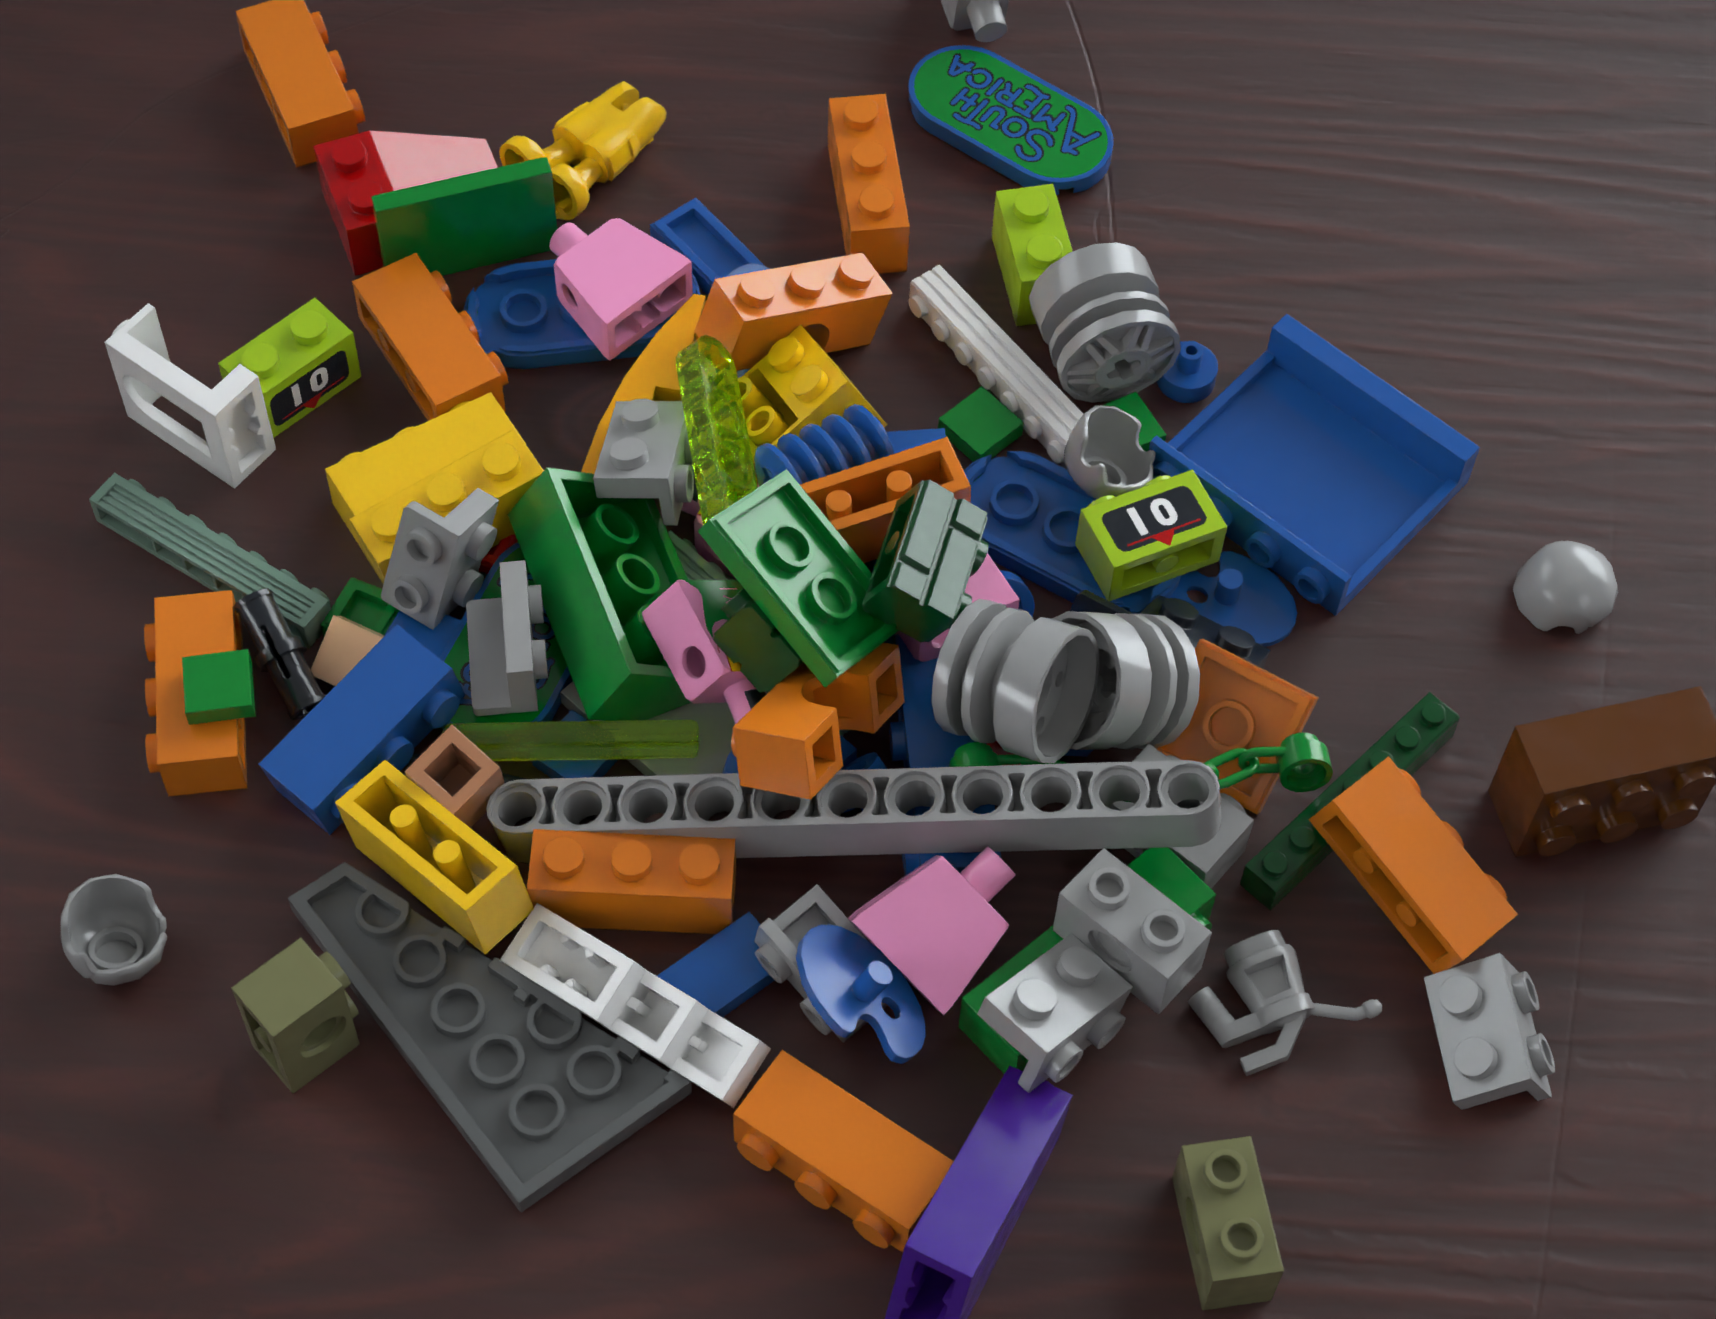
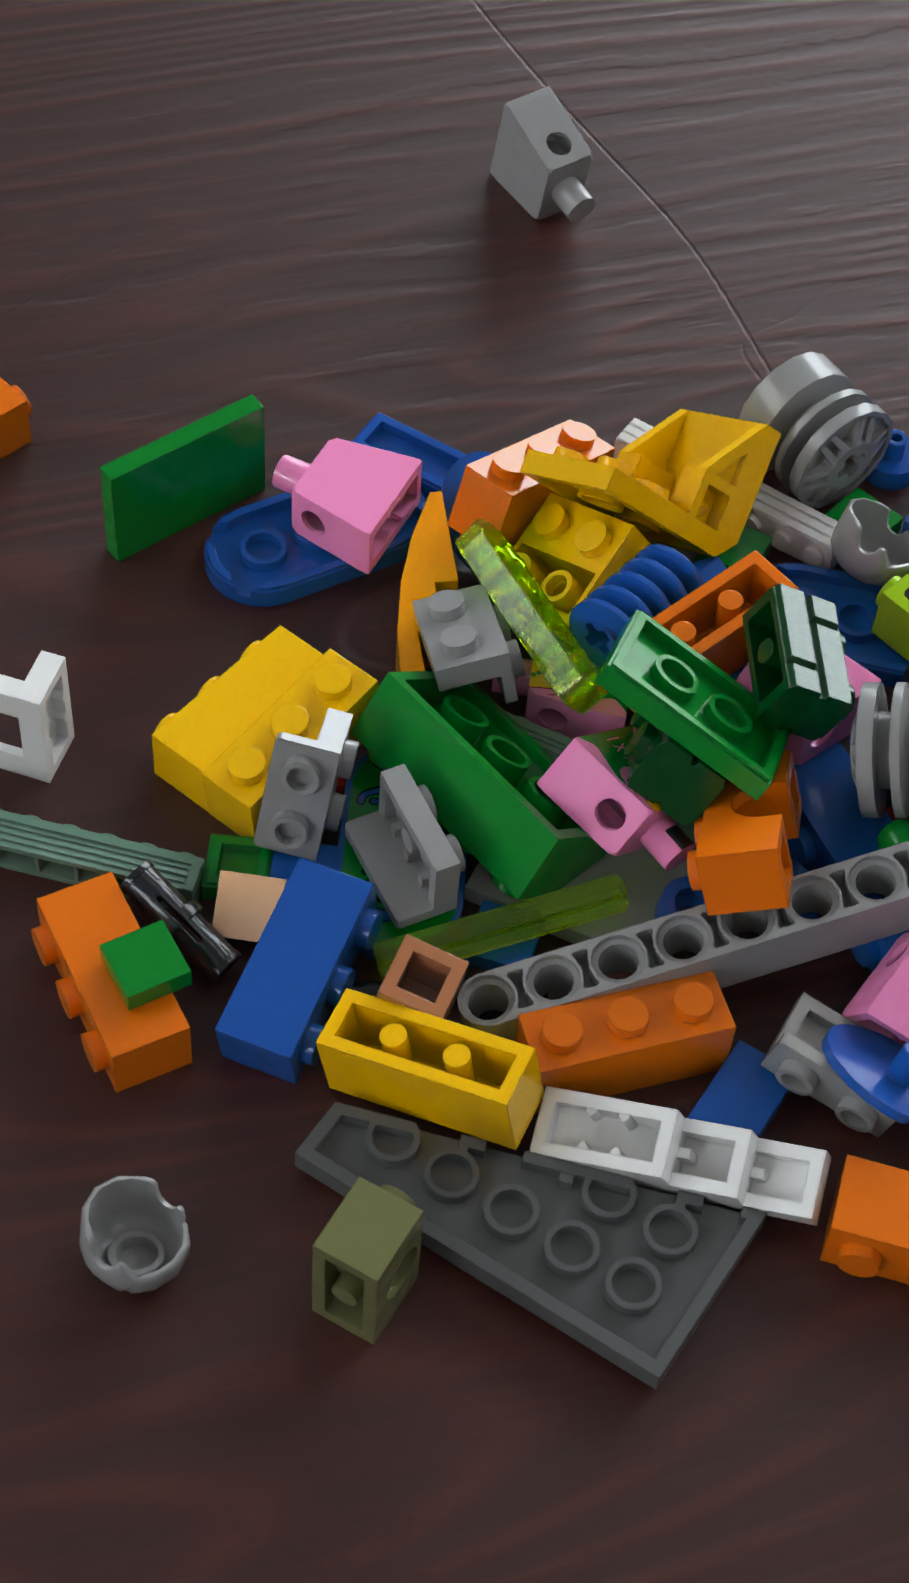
camera: 20 degrees left, 5 degrees down
(299, 363) = (82, 627): lime brick -> none
(385, 162) = (59, 465): red slope -> none
(426, 338) = (185, 596): orange brick -> none
(597, 137) = (268, 372): yellow piece -> none
(868, 181) = (534, 358): orange brick -> none
(957, 347) = (678, 483): none -> yellow bracket
(1010, 119) = (629, 283): tile -> none
(1027, 240) = (706, 373): lime brick -> none

